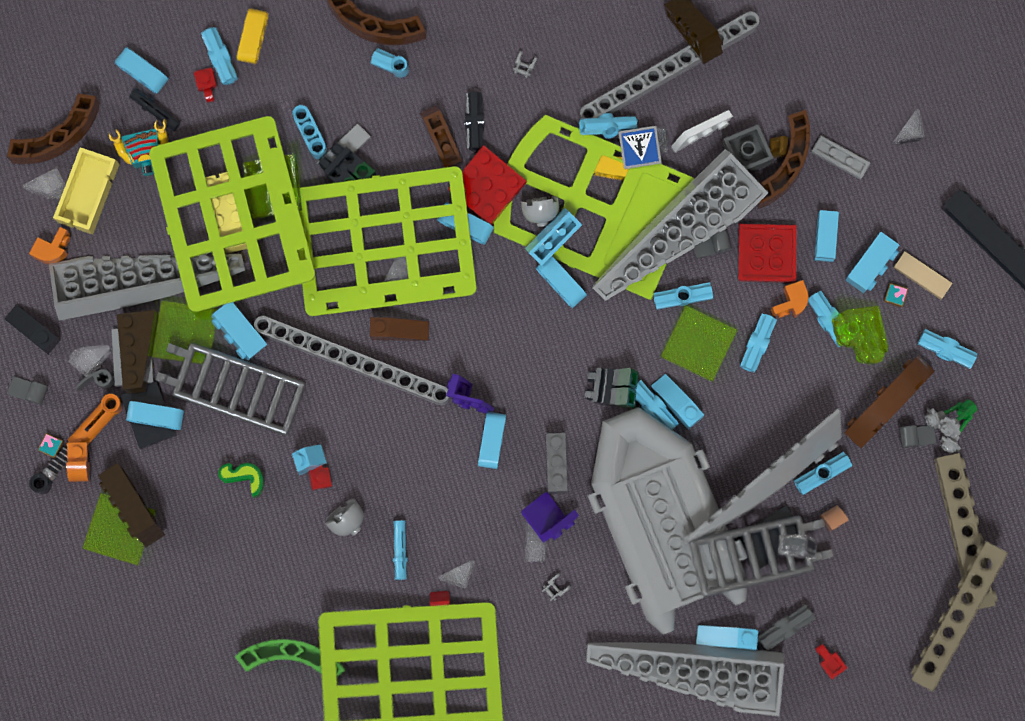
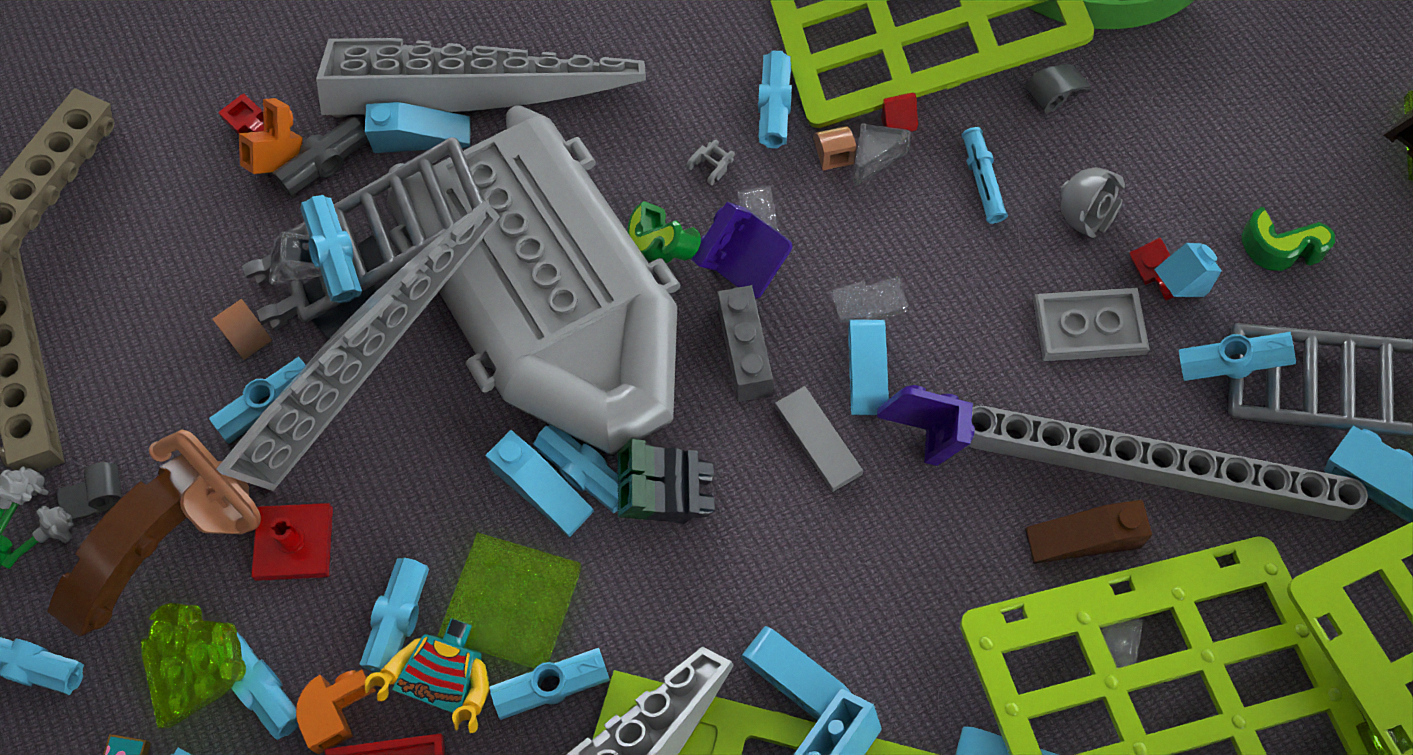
camera: 170 degrees right, 15 degrees down
(306, 410) = (1258, 354): none -> medium azure piece
(342, 602) = (1053, 85): none -> dark grey panel
(364, 448) = (1090, 324): none -> light grey tile
(481, 481) = (870, 301): none -> clear slope
(482, 585) = (835, 147): none -> nougat brick
(511, 622) = (774, 99): none -> medium azure piece
(526, 405) = (818, 439): none -> light grey tile
(598, 530) = (660, 239): none -> green animal
(736, 307) = (438, 674): none -> torso
(778, 541) = (330, 249): none -> medium azure piece
(810, 393) = (293, 542): none -> red tile
(815, 635) = (275, 145): none -> orange brick
(851, 413) = (213, 499): none -> nougat piece

